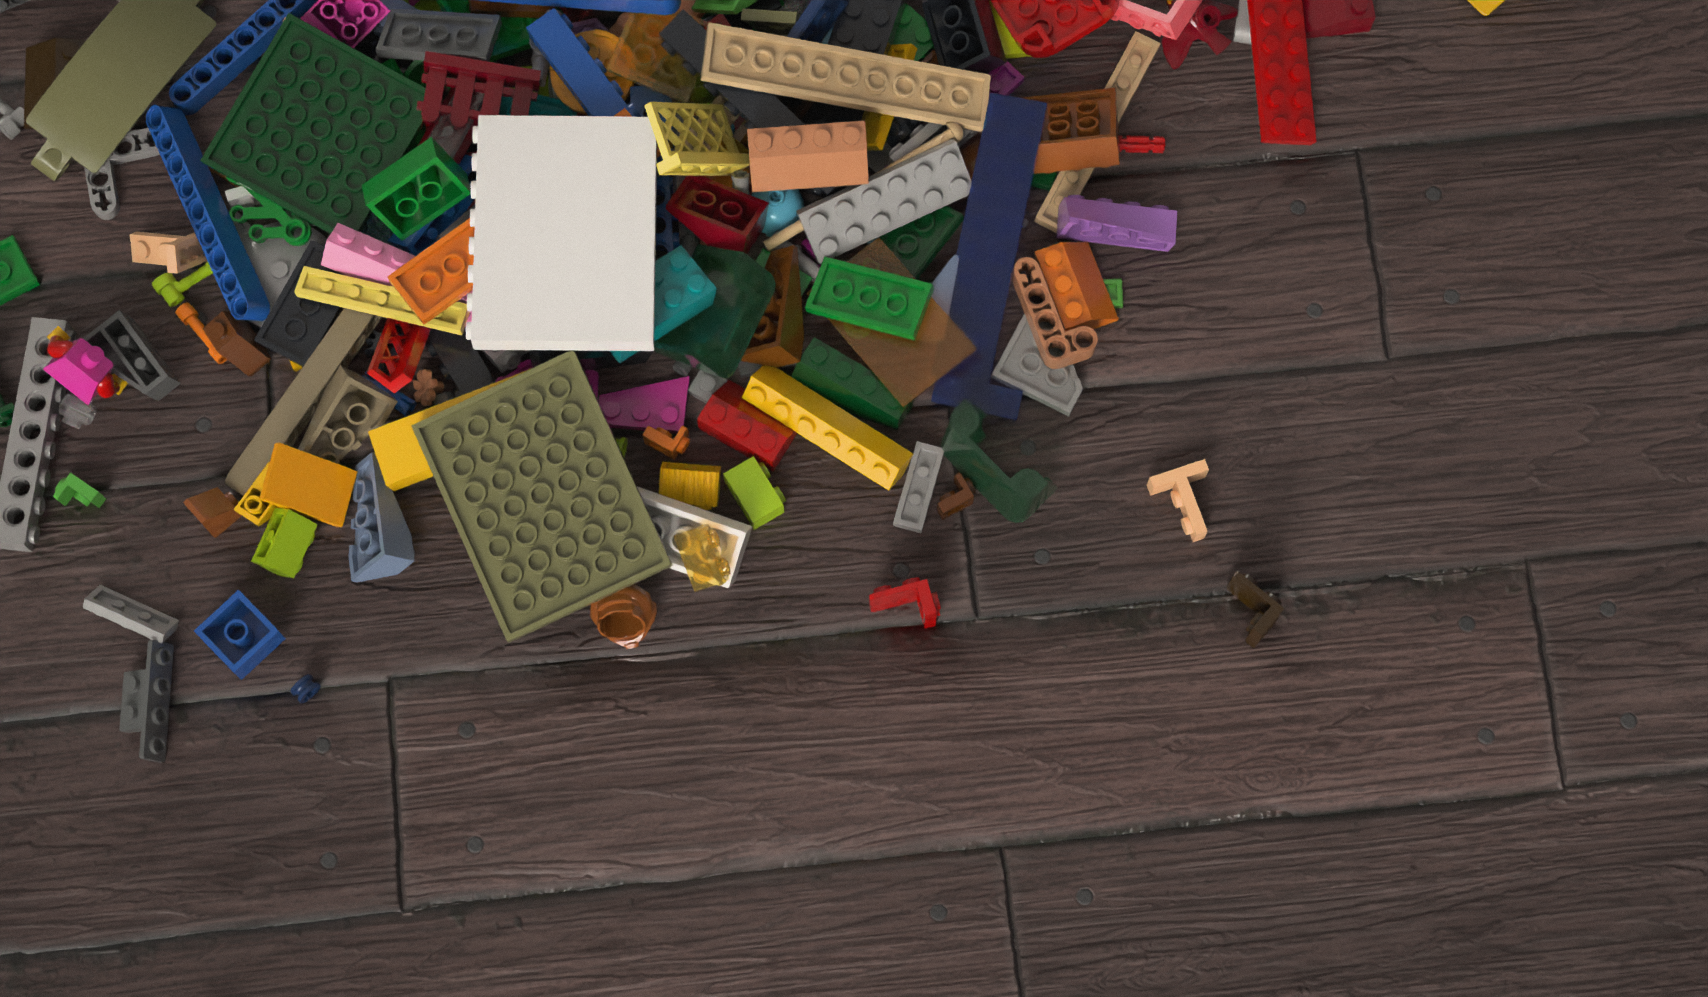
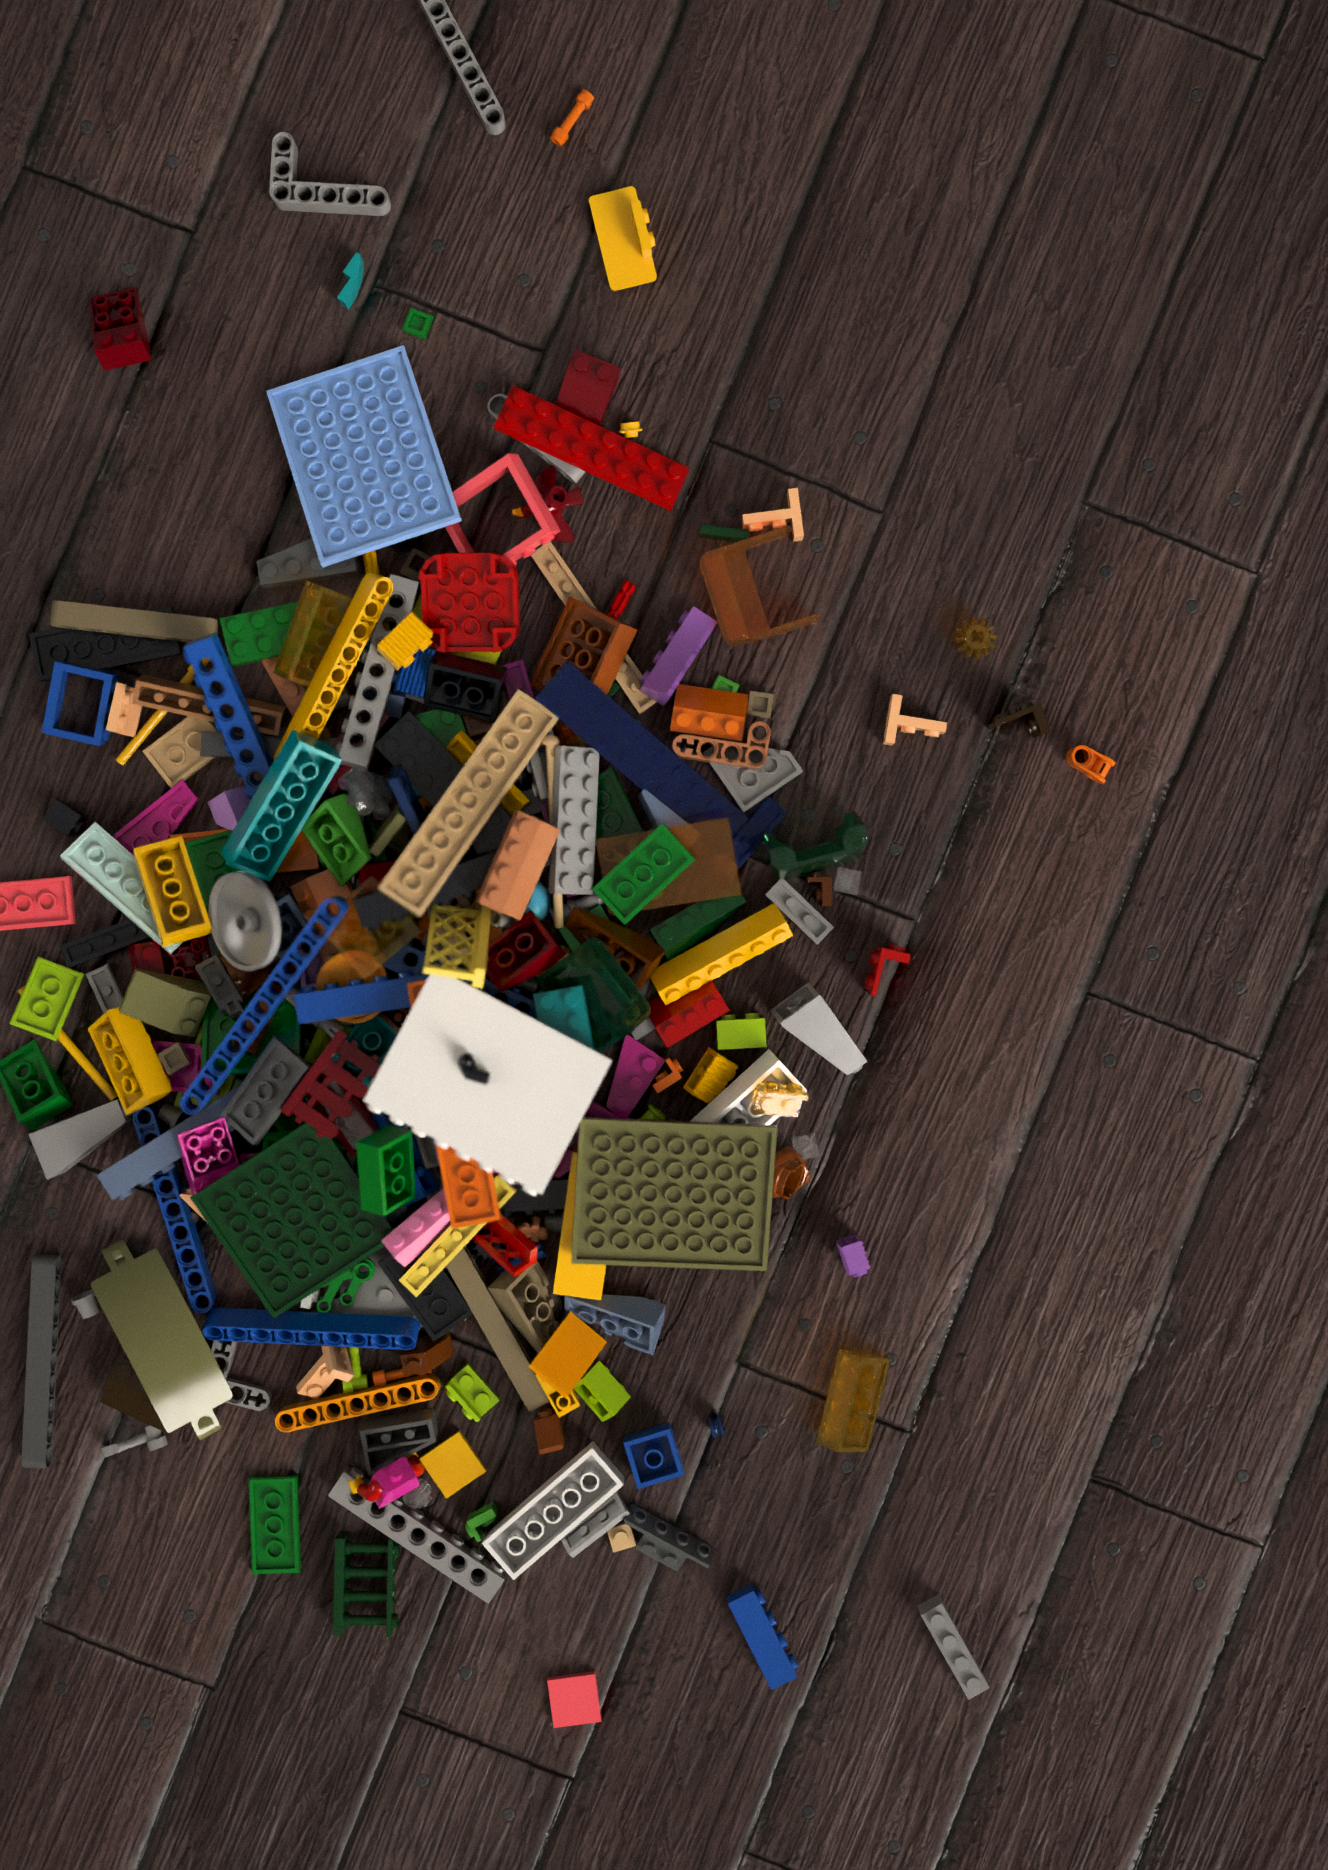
camera: 60 degrees left, 15 degrees up
(88, 862) = (762, 1637): none -> blue brick
(126, 559) = (553, 1510): none -> white brick
(127, 434) = (453, 1464): none -> yellow tile
(130, 651) = (621, 1537): none -> tan plate
(140, 293) = (349, 1410): none -> light orange beam
(215, 414) = (471, 1392): none -> lime bracket
(407, 824) = (853, 1401): none -> clear yellow slope
(566, 202) = (470, 1070): none -> black arm
(571, 733) = (853, 1255): none -> medium lavender brick
(667, 627) = (805, 1145): none -> clear tile
(802, 571) = (814, 1024): none -> light grey slope
(978, 520) = (847, 881): none -> clear plate
(1114, 334) = (760, 704): none -> dark tan plate
(1215, 248) = (736, 595): none -> clear orange windscreen
(1253, 718) = (1094, 765): none -> orange piece
(1269, 208) = (723, 533): none -> dark green tile
(1319, 253) = (778, 518): none -> light nougat bracket
(1320, 65) = (630, 429): none -> yellow plate
(1325, 520) = (979, 630): none -> clear yellow gear

